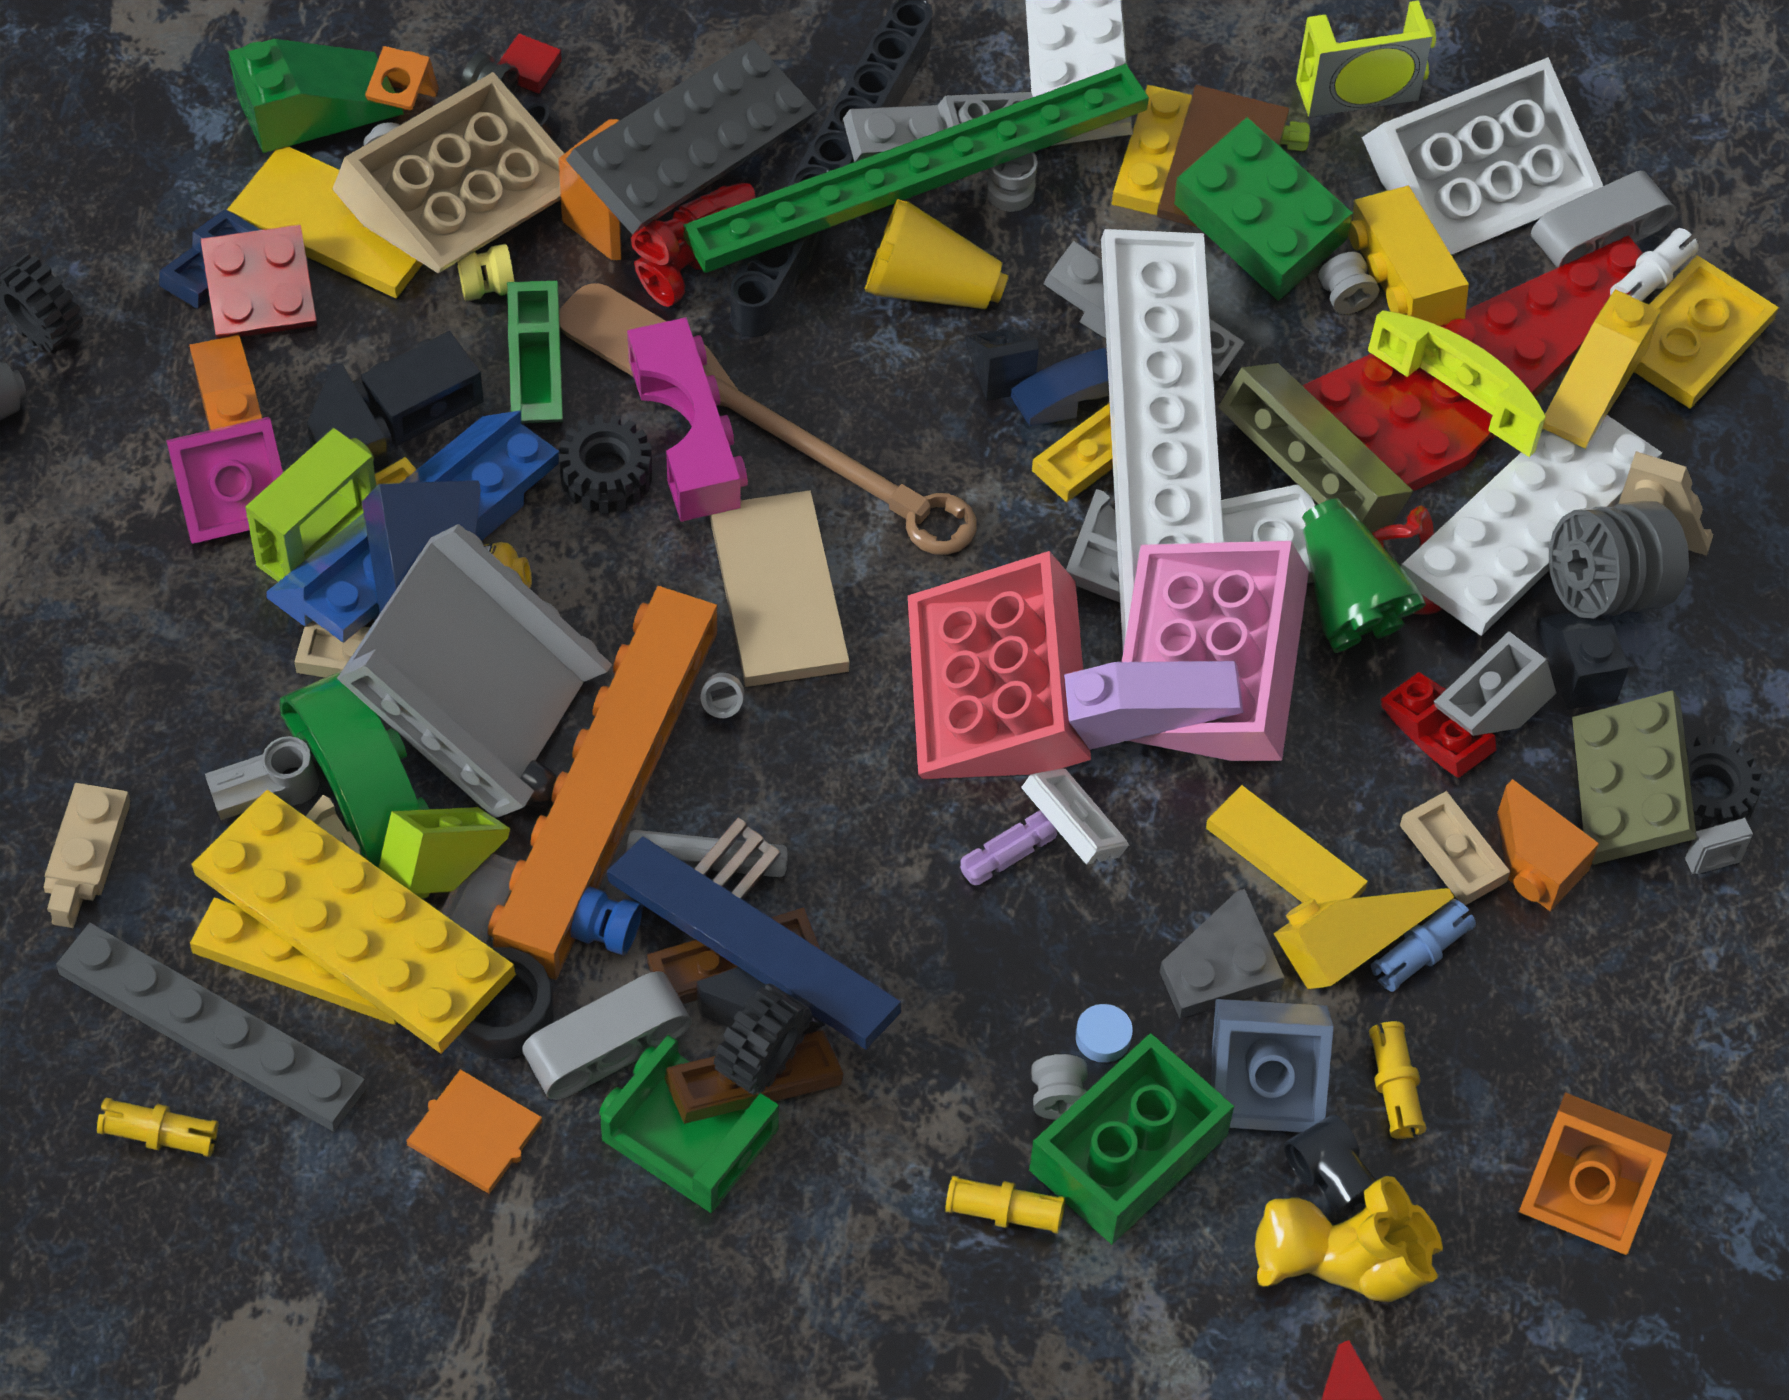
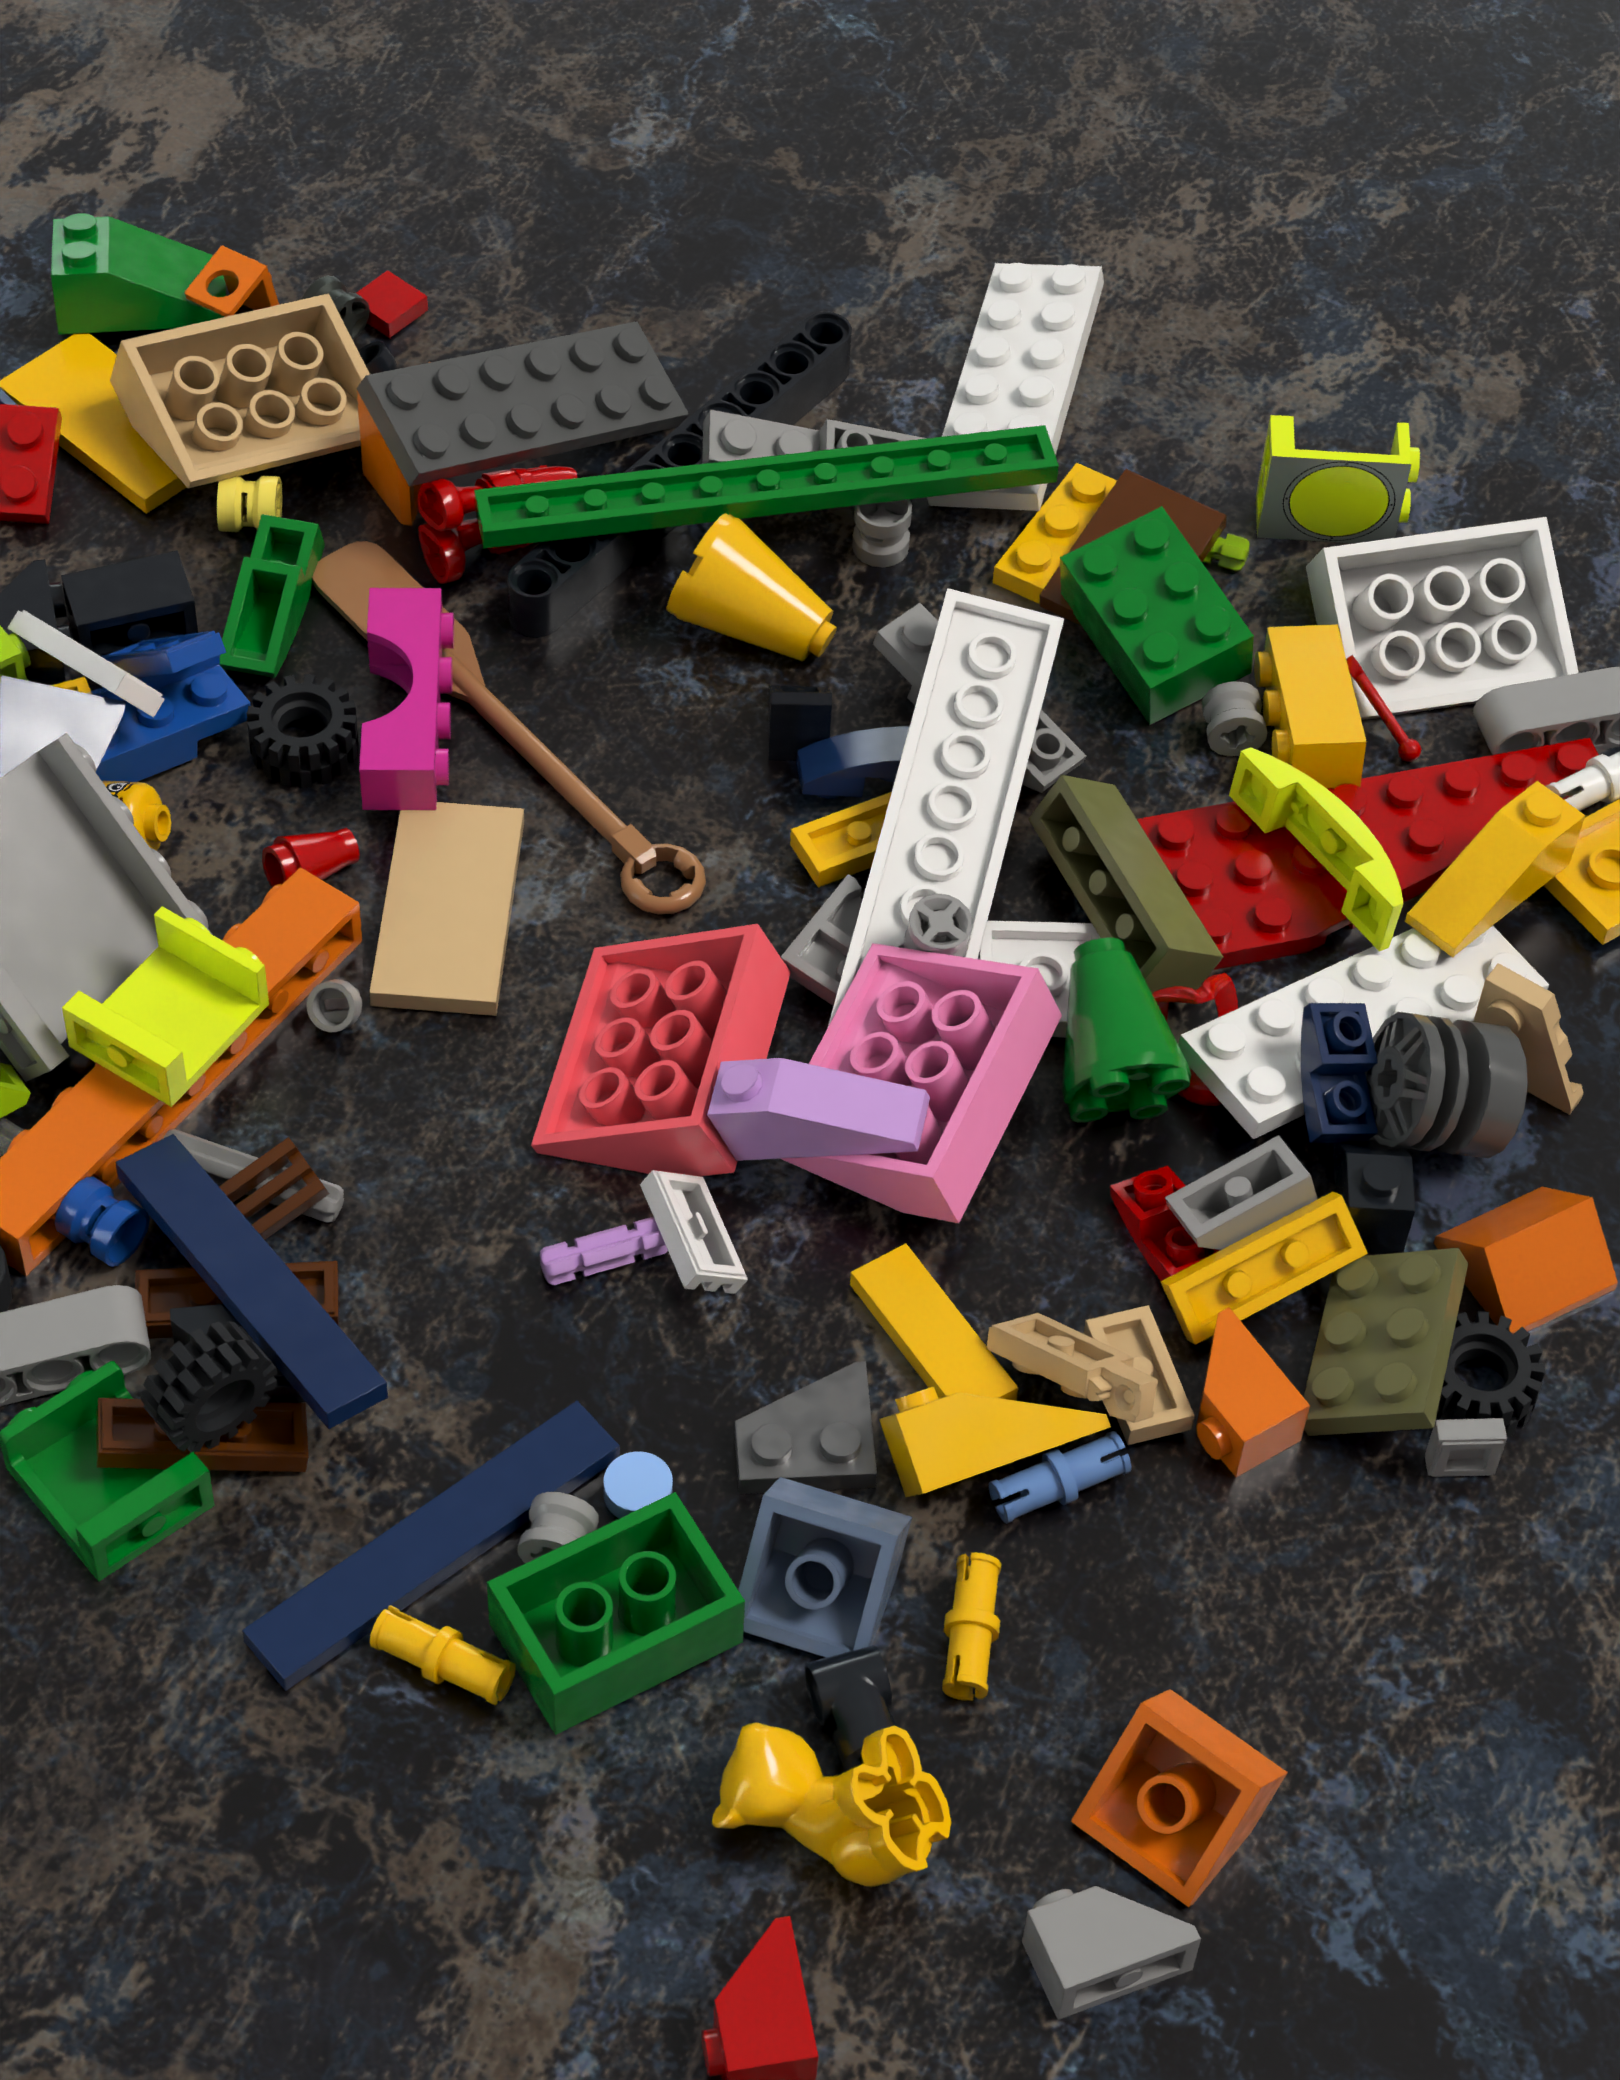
camera: 15 degrees right, 5 degrees down
(426, 451) = (87, 662): none -> white tile
(475, 429) = (167, 654): none -> blue tile
(606, 732) = (172, 1010): none -> neon yellow panel
(659, 568) = (314, 852): none -> red cone
(961, 1119) = (428, 1545): none -> dark blue tile
(1198, 514) = (939, 917): none -> light grey wheel
(1412, 852) = (1077, 1363): none -> tan hinge
(1489, 276) = (1408, 749): none -> red hinge
(1525, 739) = (1265, 1266): none -> yellow plate
(1529, 557) = (1334, 1060): none -> dark blue slope
(1577, 1302) = (1103, 1947): none -> light grey slope
(1720, 677) = (1534, 1257): none -> orange slope

